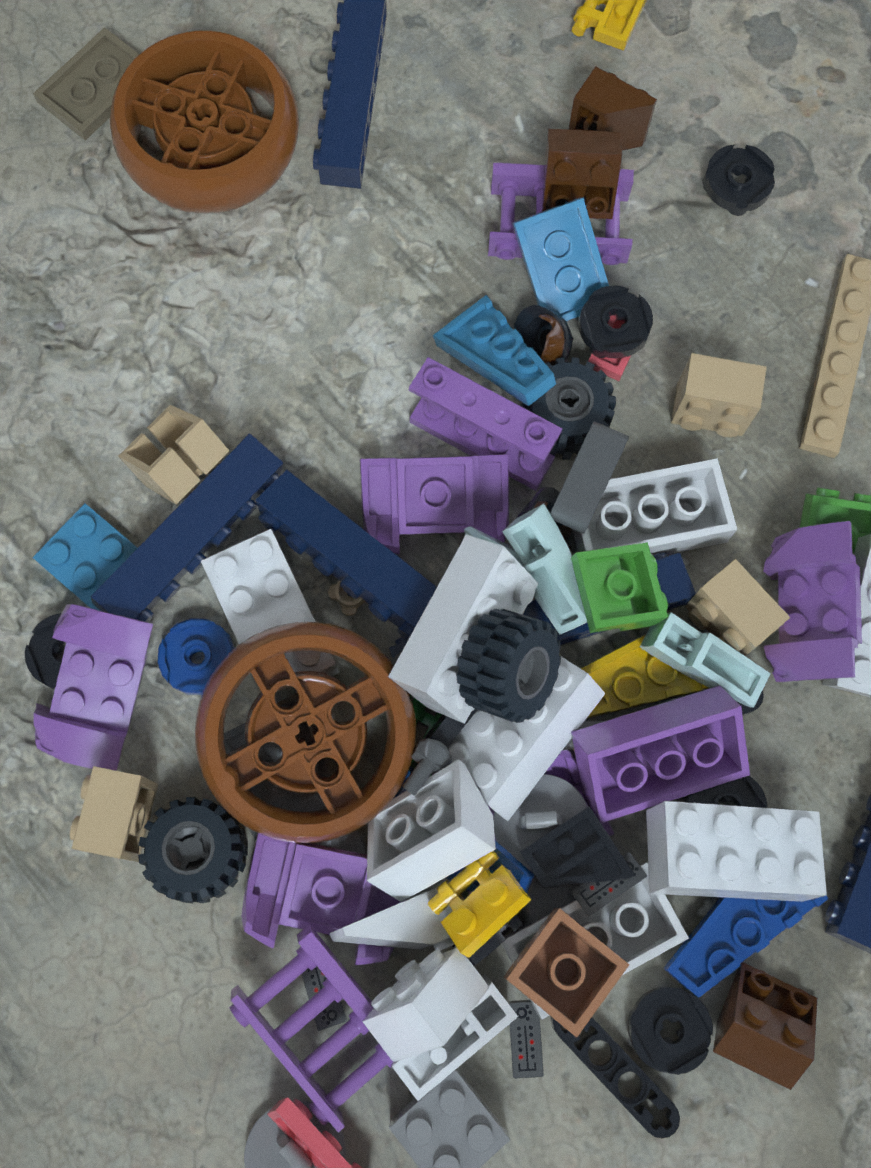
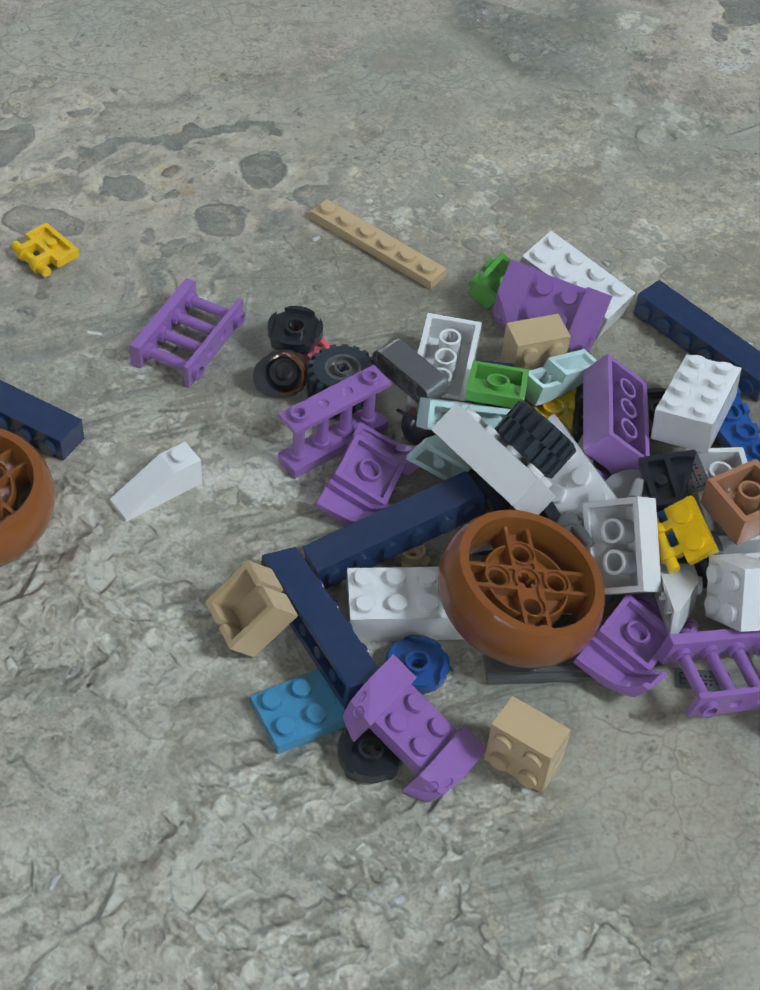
camera: 70 degrees left, 25 degrees down
(193, 851) = (579, 703): black wheel -> none
(325, 288) = (159, 481): none -> white slope
(496, 352) = (260, 405): dark azure wing -> none
(561, 257) = (231, 334): dark azure plate -> none
(582, 167) = (176, 297): reddish brown slope -> none
(613, 106) = (133, 274): reddish brown slope -> none
(718, 395) = (379, 301): tan brick -> none
(736, 196) = (233, 242): black plate -> none

